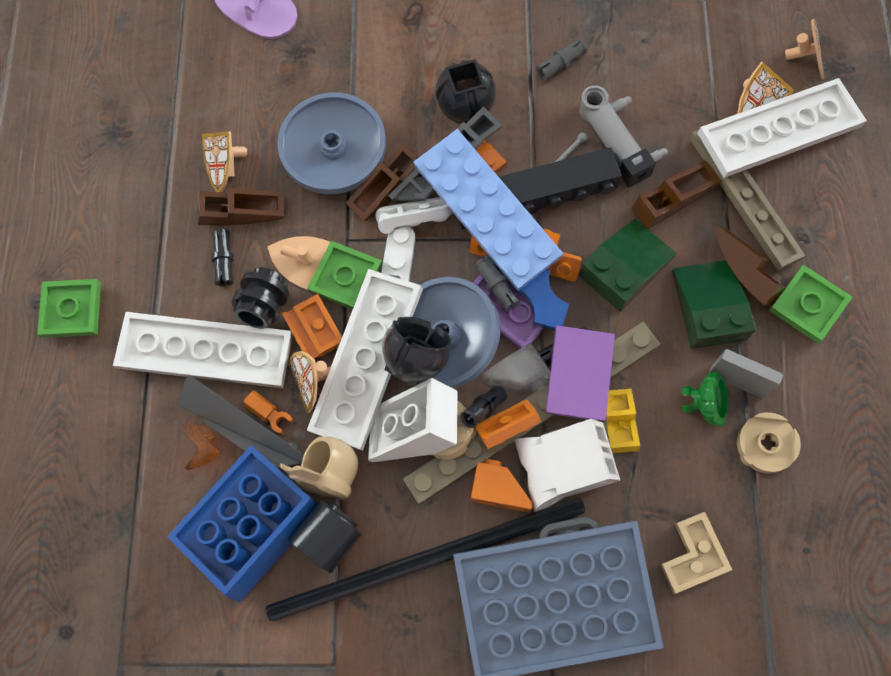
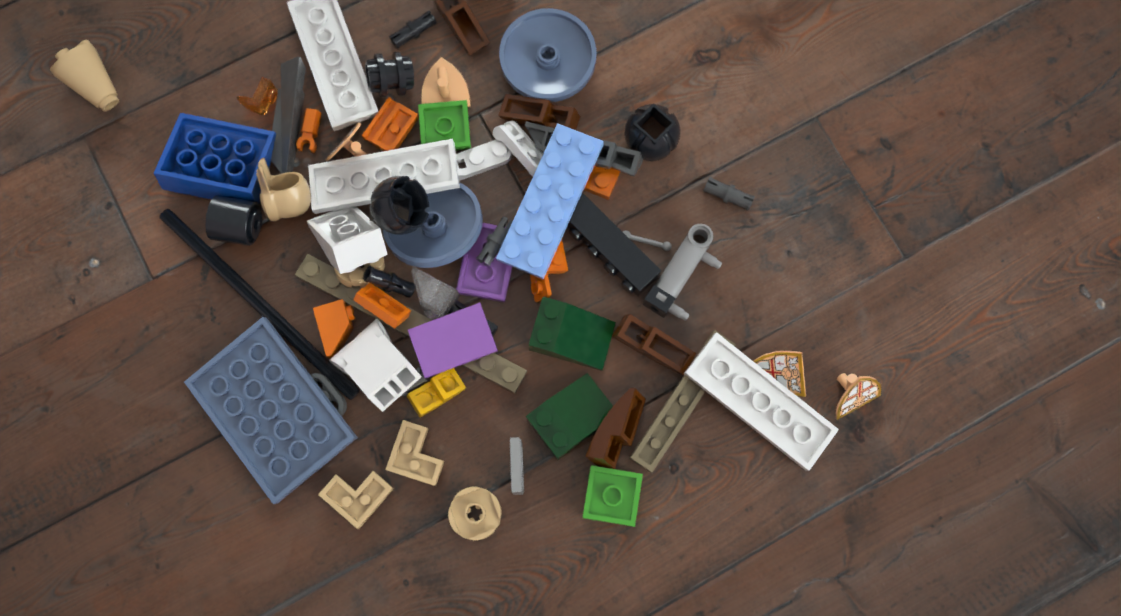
camera: 55 degrees right, 5 degrees up
(57, 623) = (86, 75): none -> tan cone
(547, 307) = (496, 291): blue tile -> none
(677, 482) = (407, 456): none -> tan plate
(709, 399) = (485, 451): green hair -> none

